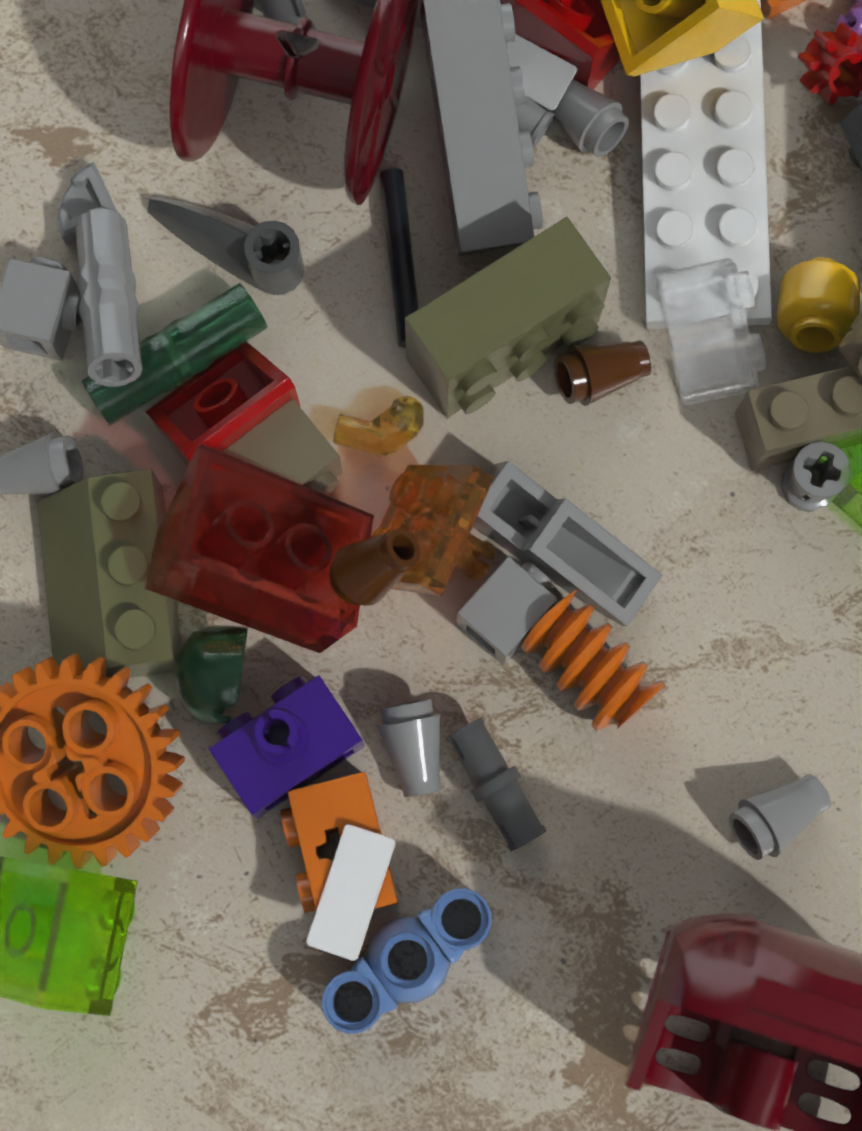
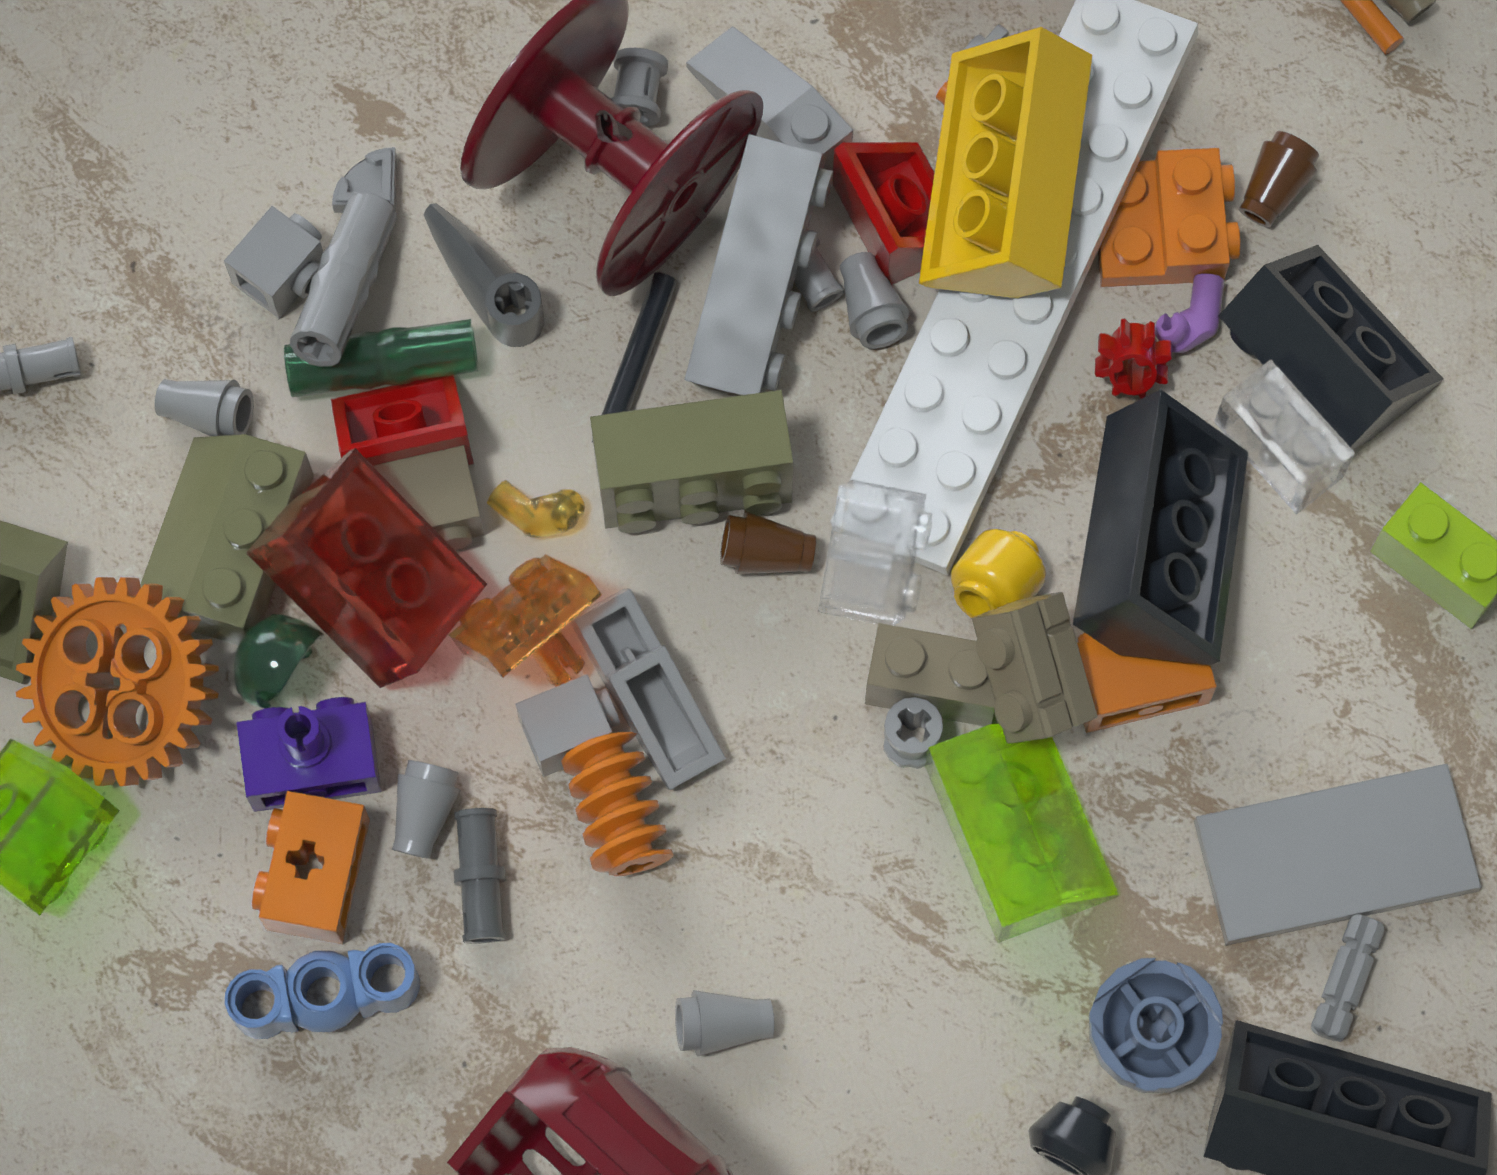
camera: 25 degrees right, 5 degrees down
(351, 892) = (299, 903): white sticker -> none
(371, 567) = (454, 624): reddish brown cone -> none
(542, 72) = (841, 237): white sticker -> none

